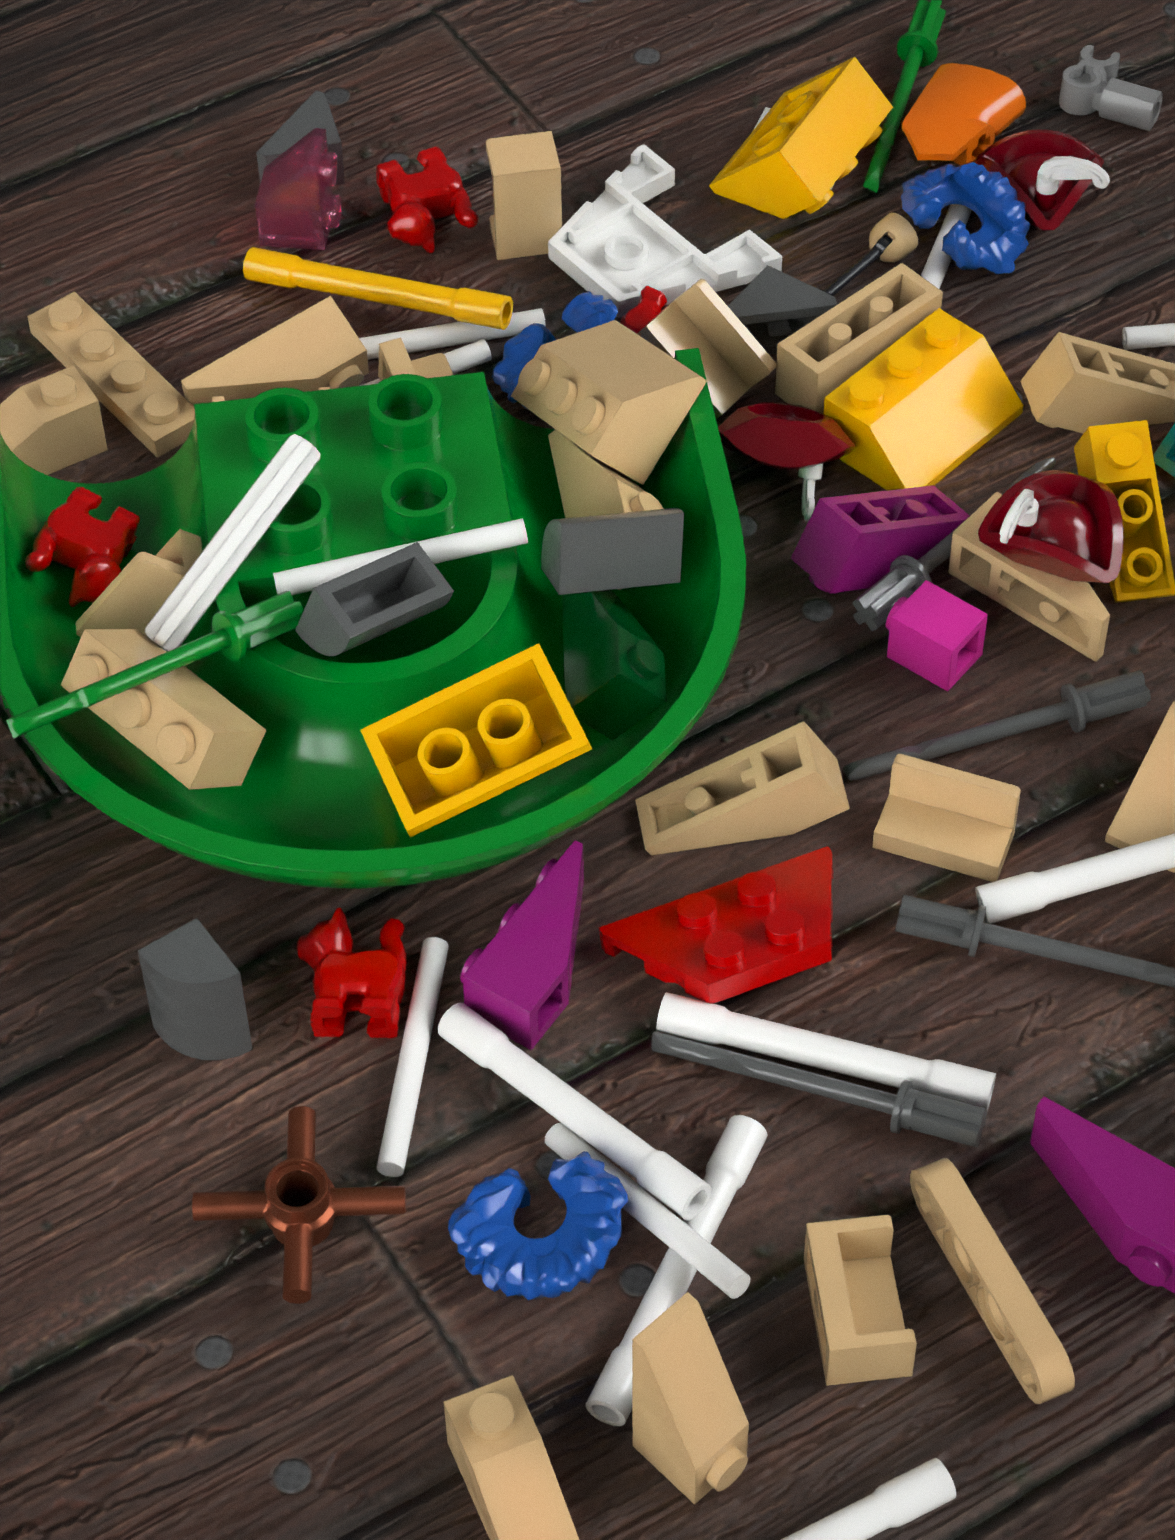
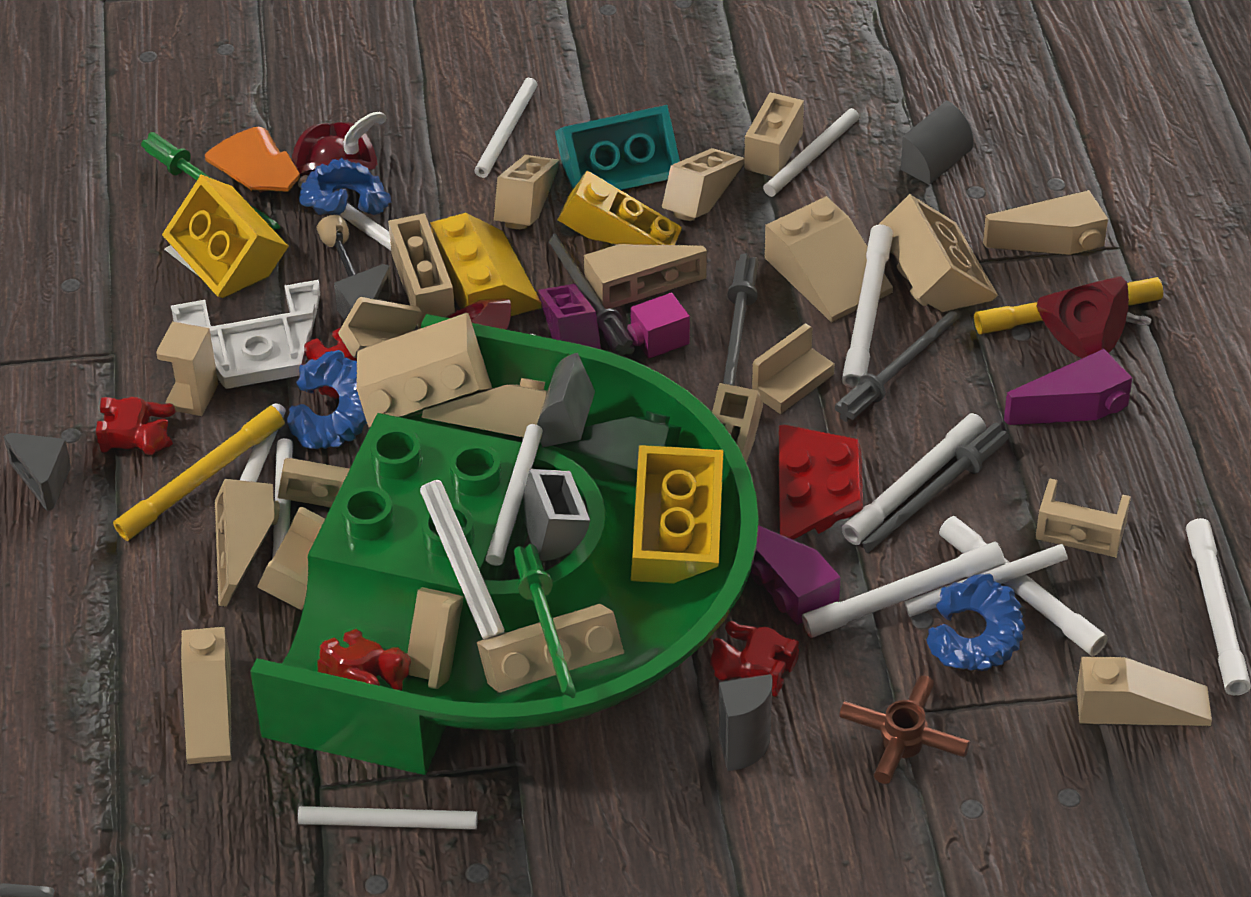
camera: 65 degrees left, 5 degrees down
(115, 373) = (162, 631): tan plate -> none
(296, 196) = (92, 477): clear pink slope -> none
(412, 1058) = (828, 657): white bar -> none
(686, 1404) = (1130, 601): tan slope -> none
(992, 1281) = (1093, 468): tan beam -> none
(1058, 526) = (641, 233): dark red hat -> none
(1094, 87) = (272, 106): light grey bar -> none

